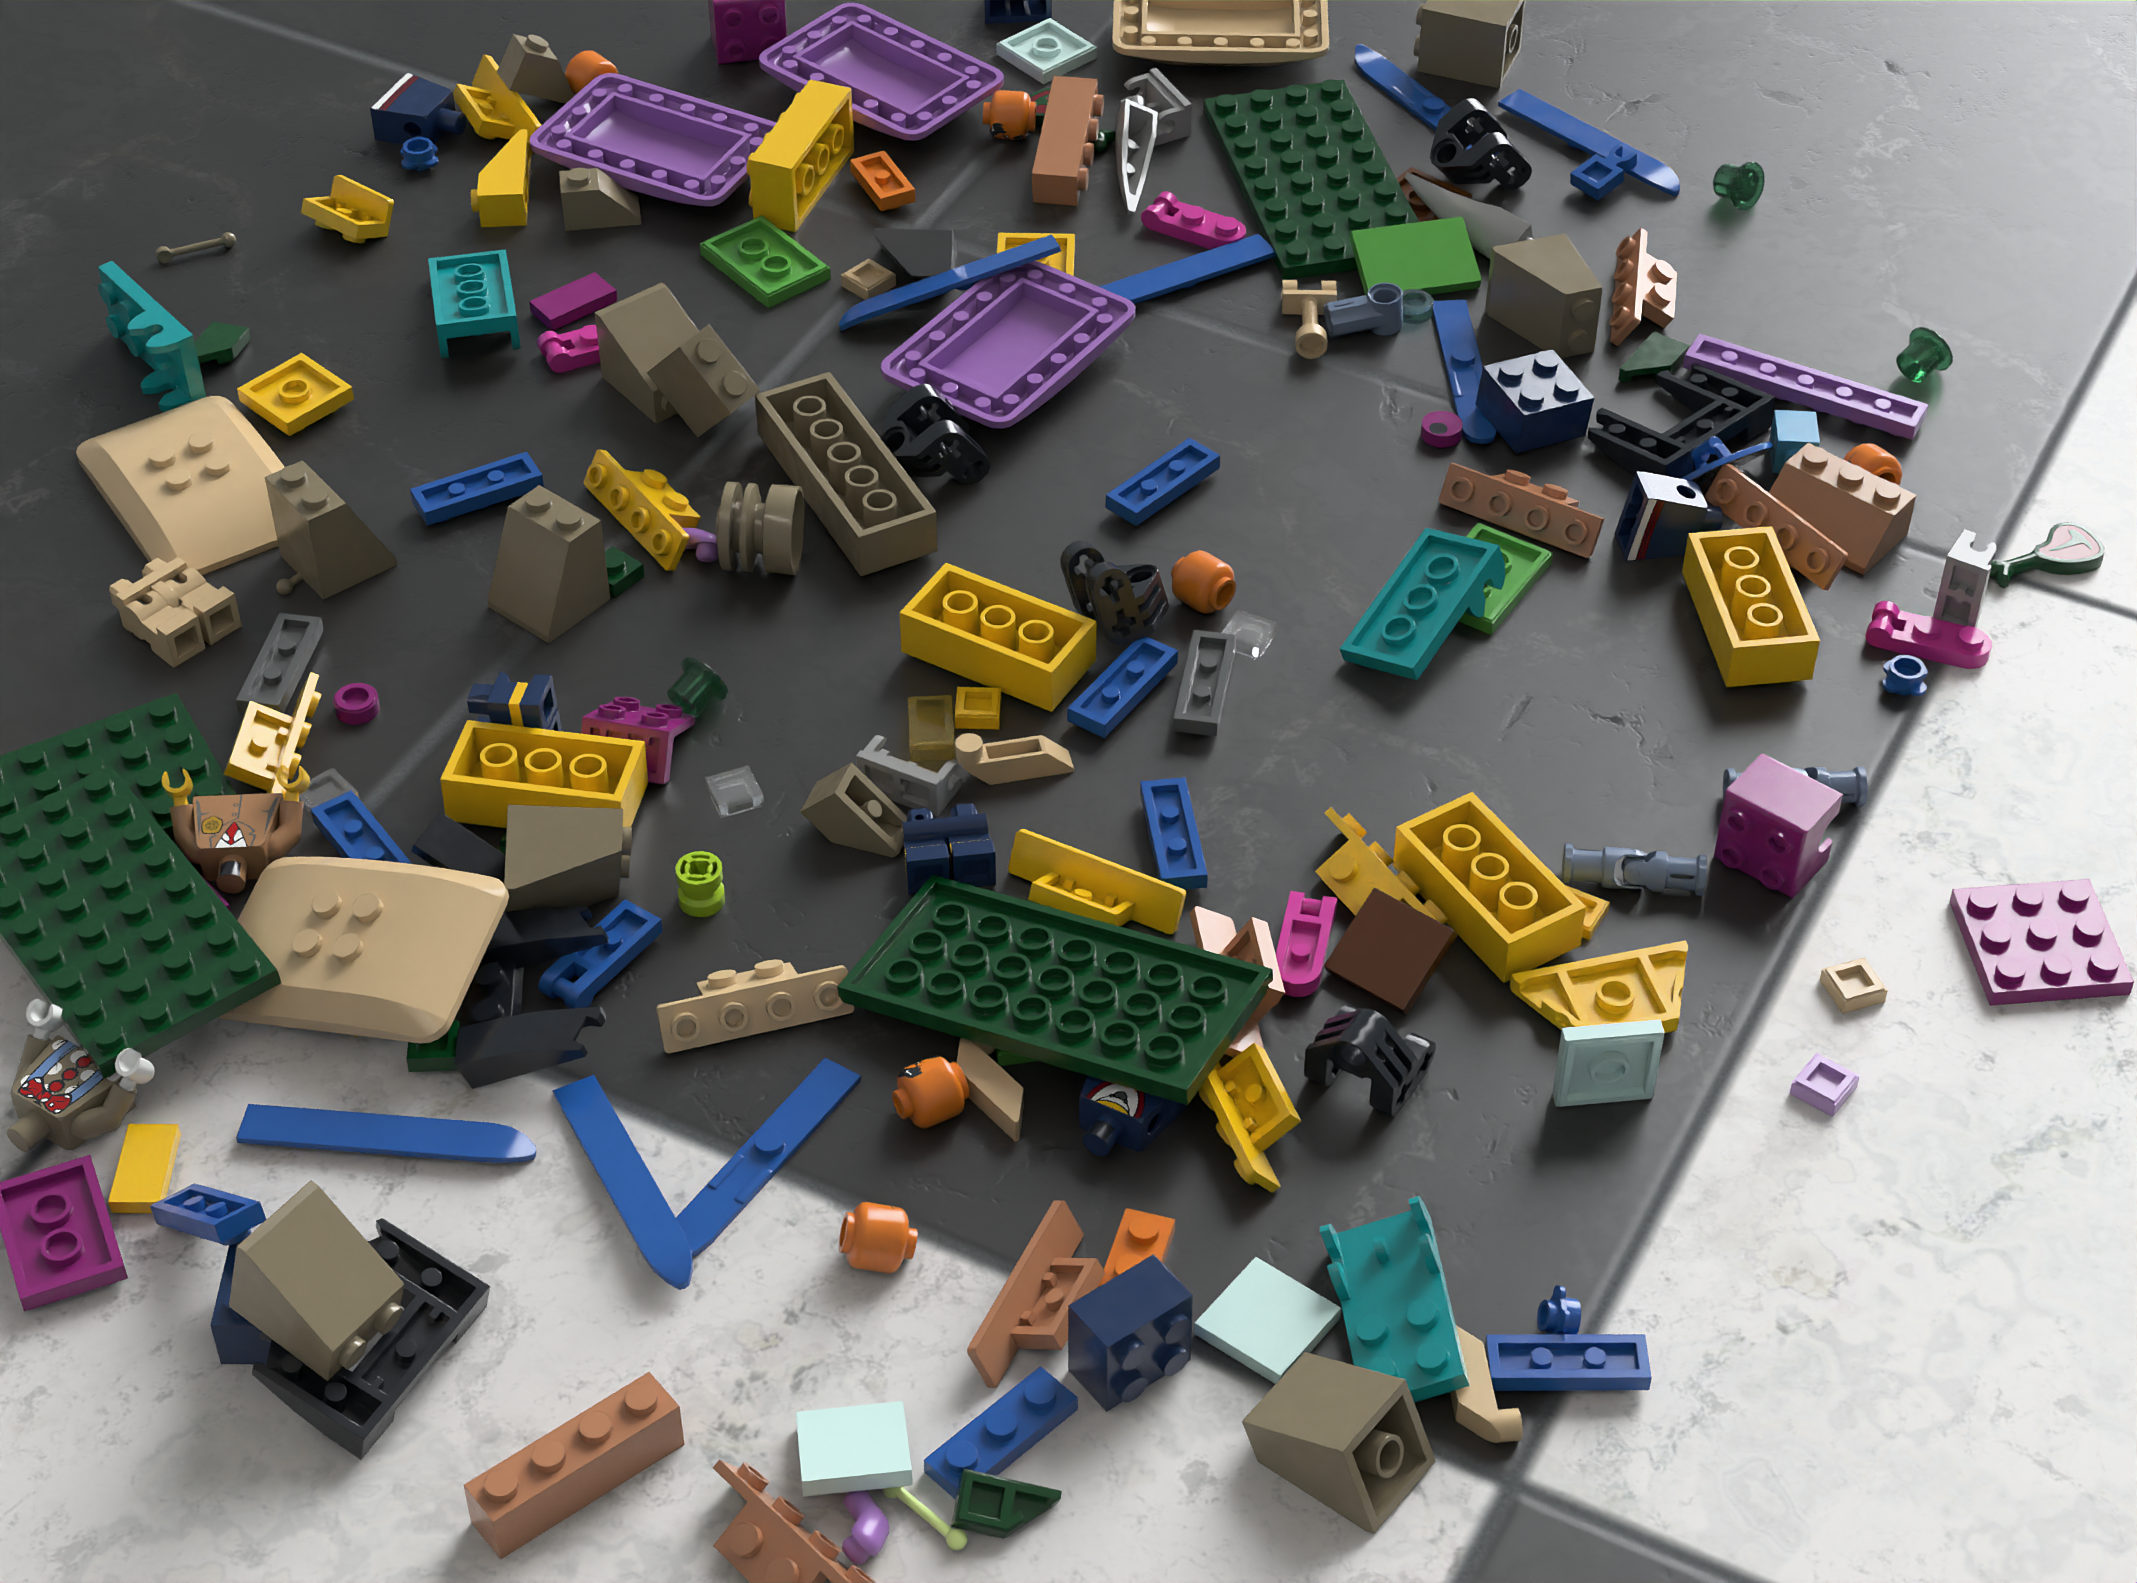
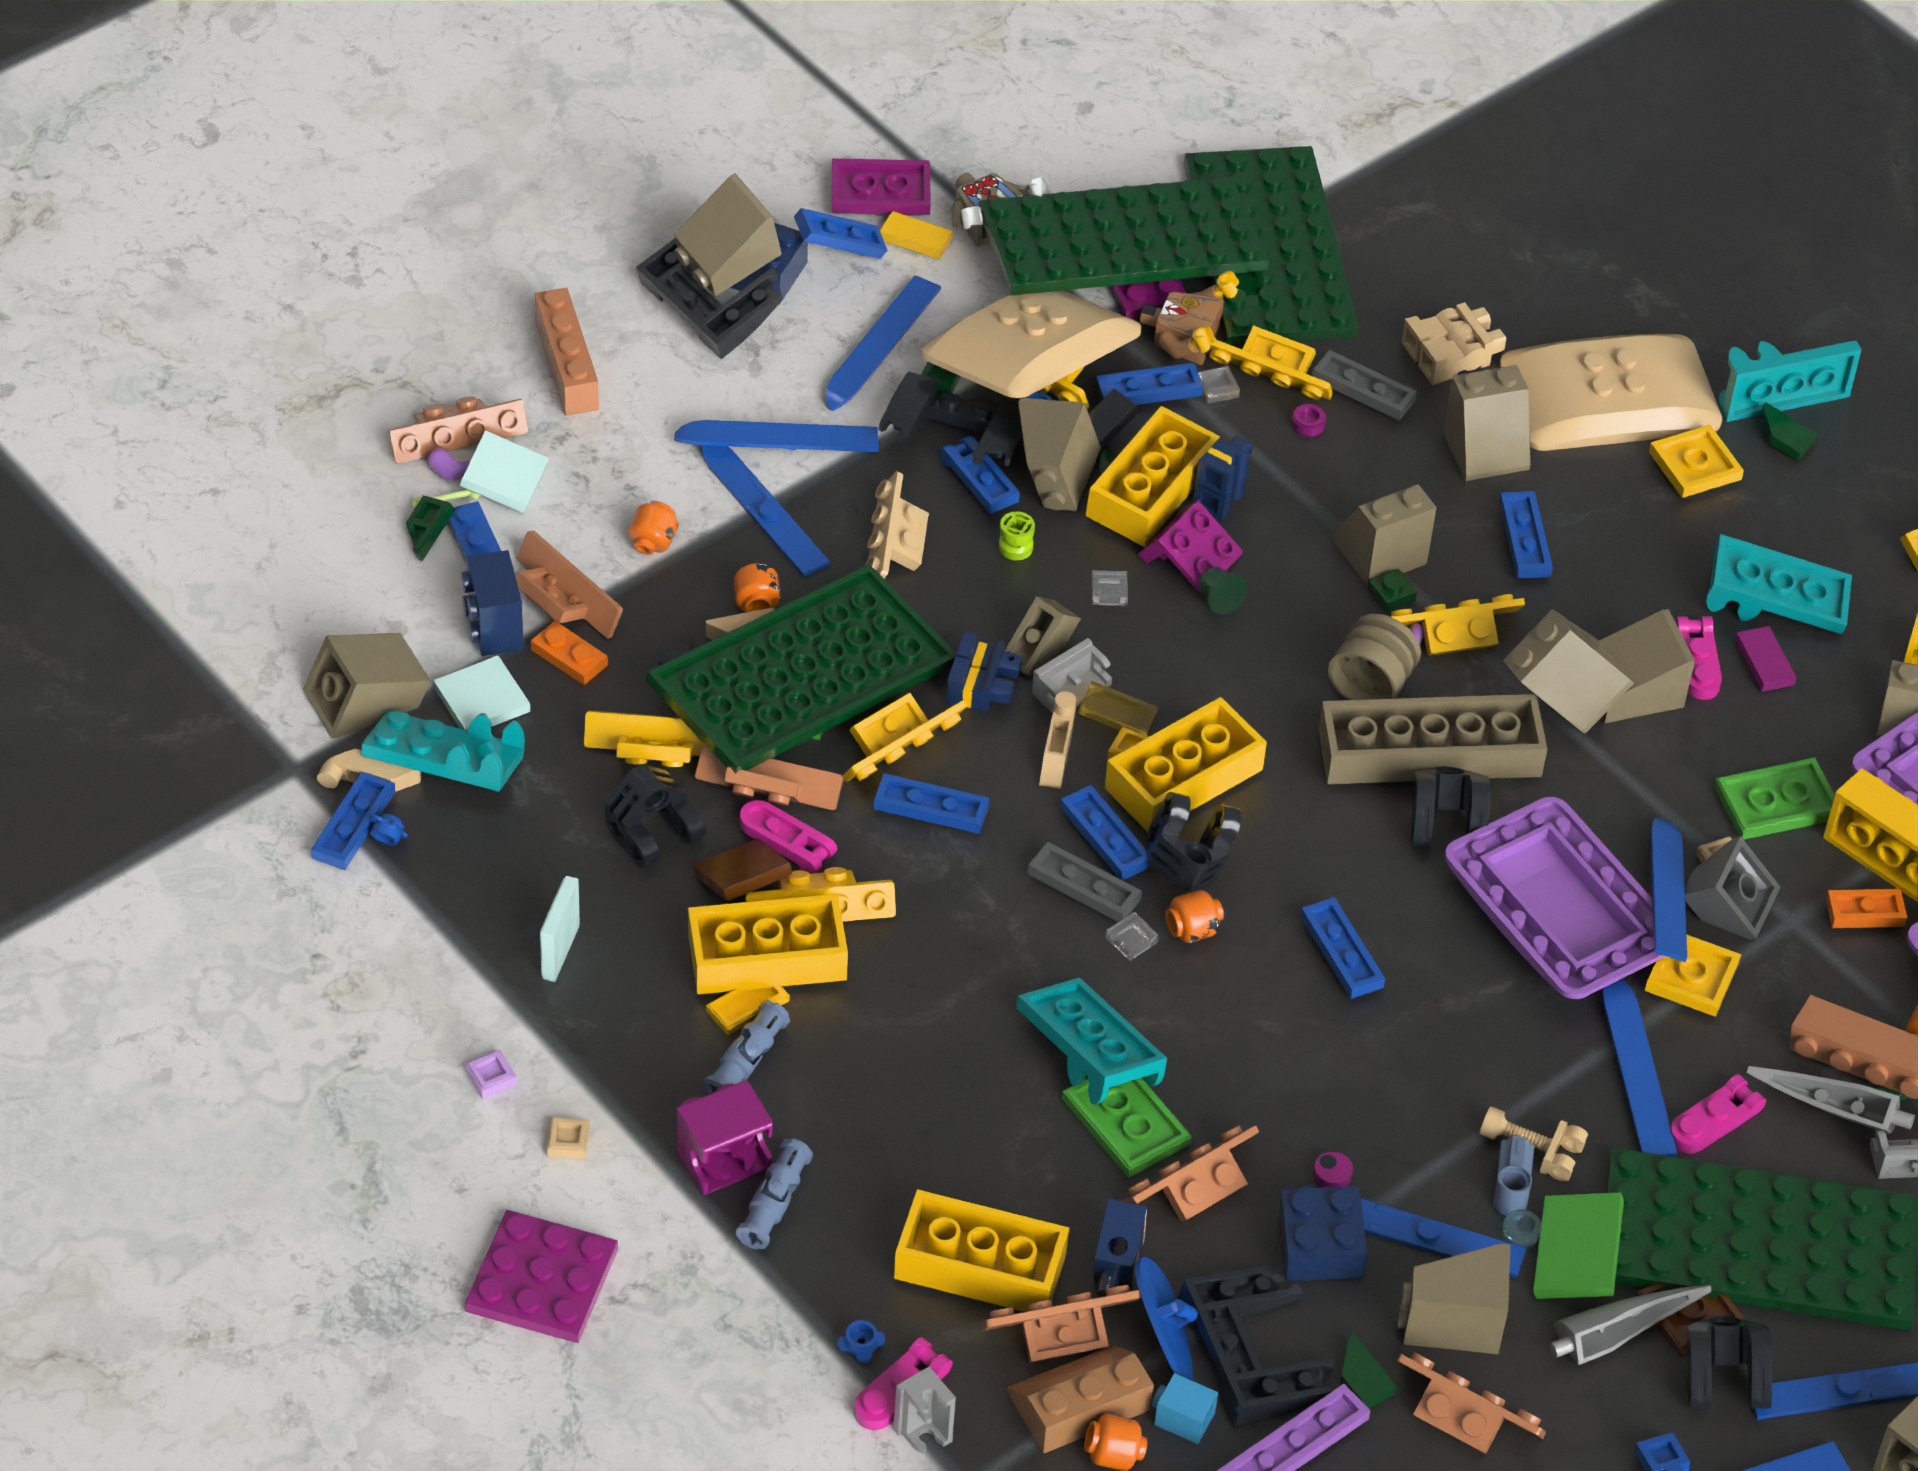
camera: 110 degrees right, 5 degrees up
(1609, 988) = (635, 985): yellow wing -> none

